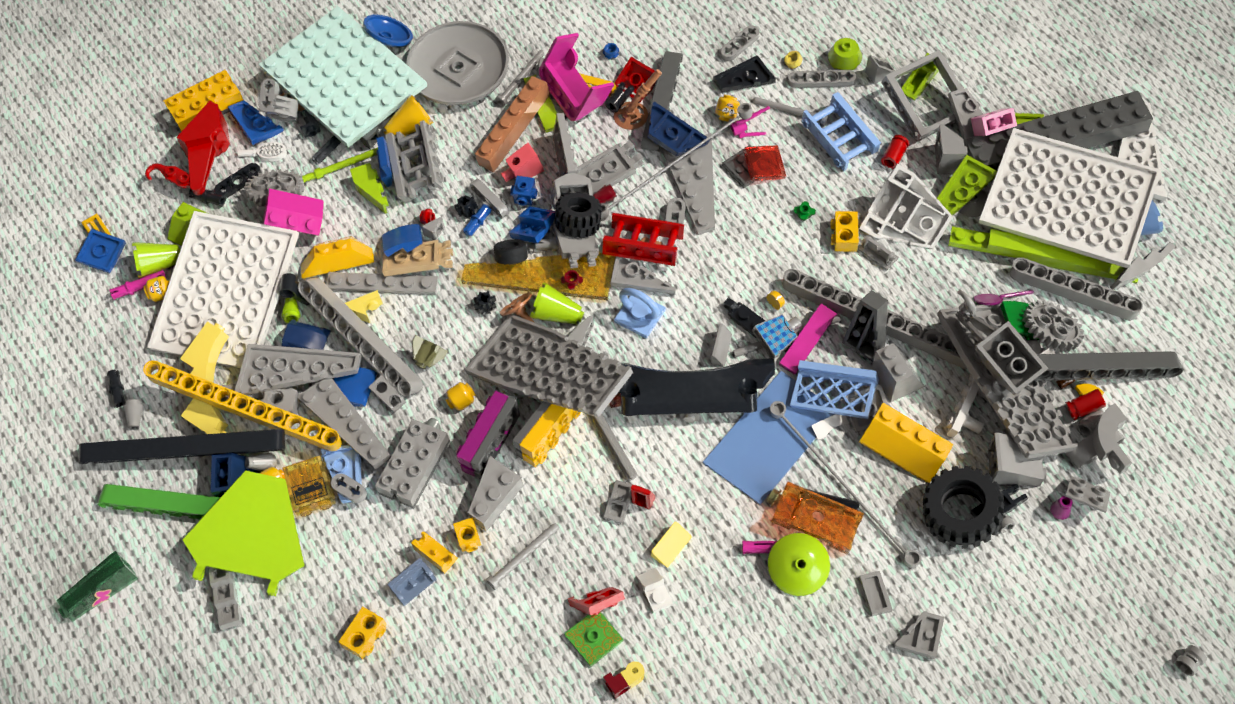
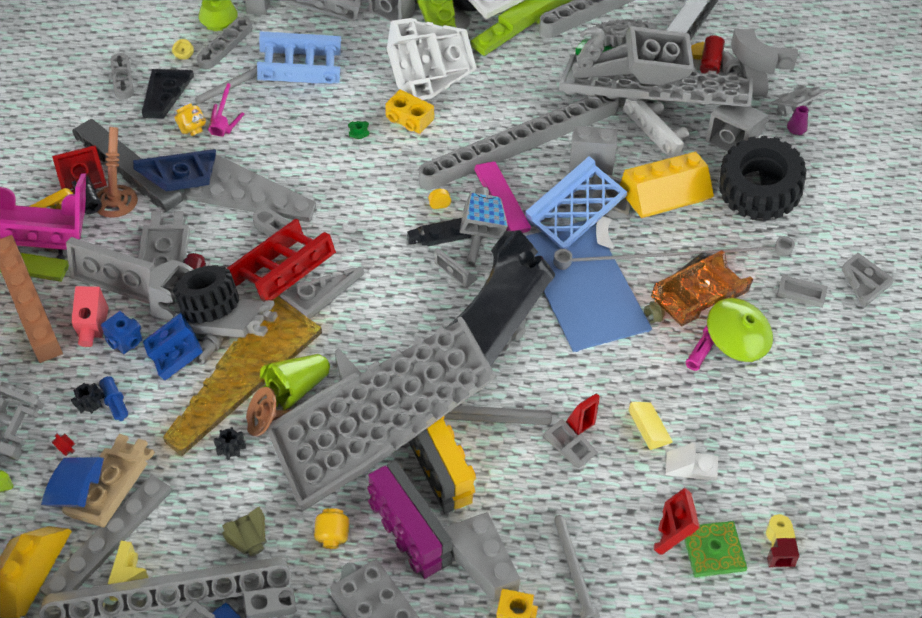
camera: 65 degrees left, 10 degrees down
(433, 229) = (86, 446): light grey slope -> none
(488, 196) = (84, 371): light grey beam -> none
(510, 251) = (189, 382): black tyre -> none
(571, 274) = (276, 339): dark red plate -> none
(611, 47) = (20, 173): blue plate -> none
(639, 312) = (365, 311): light blue tile -> none
(737, 167) = (261, 151): dark grey tile -> none
(745, 112) = (217, 104): light grey piece -> none
(764, 163) = (279, 127): clear red tile -> none
(868, 326) = (532, 141): dark grey wedge -> none
(878, 252) = (445, 105): light grey hinge -> none
(895, 151) = (355, 36): red piece -> none
(993, 299) = (563, 57): magenta piece -> none

